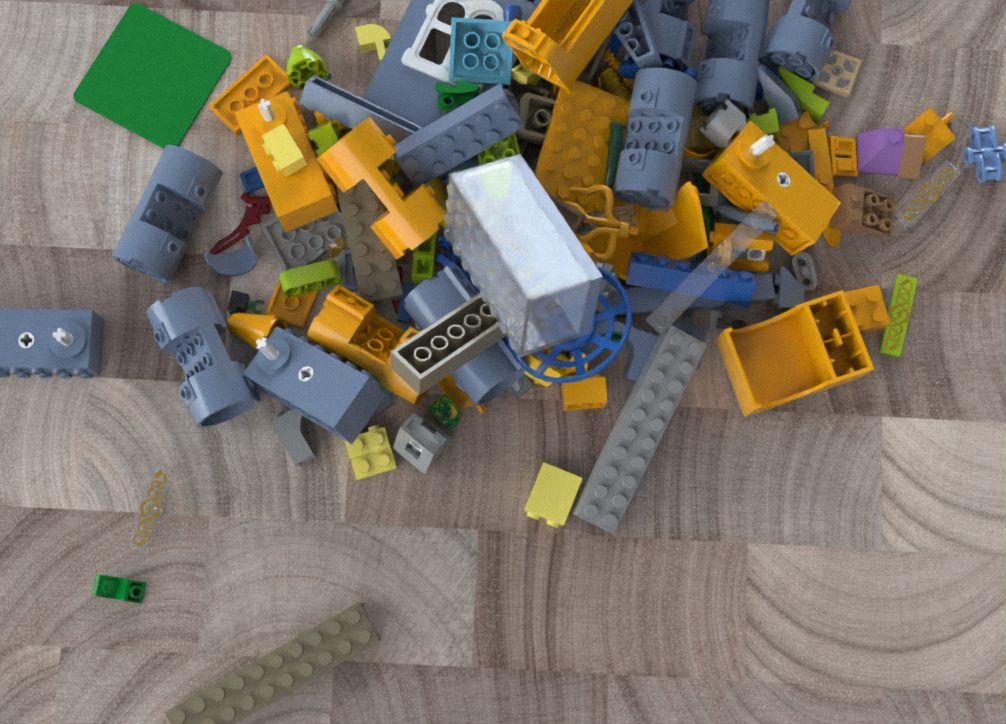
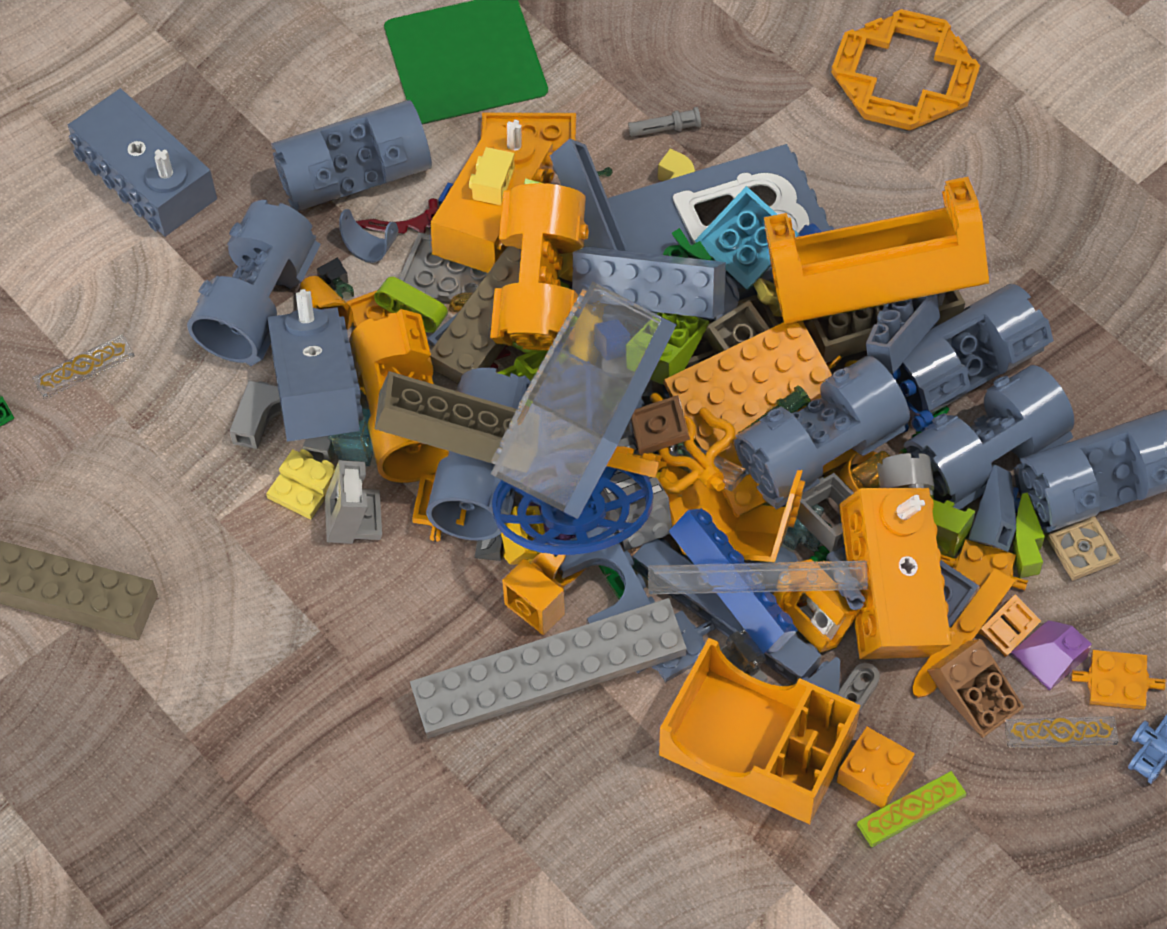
camera: 50 degrees right, 20 degrees down
(303, 65) = (599, 142): lime piece -> none
(446, 412) = (400, 507): green brick -> none
(552, 495) = (411, 656): light yellow brick -> none
(912, 156) = (1076, 678): medium nougat slope -> none

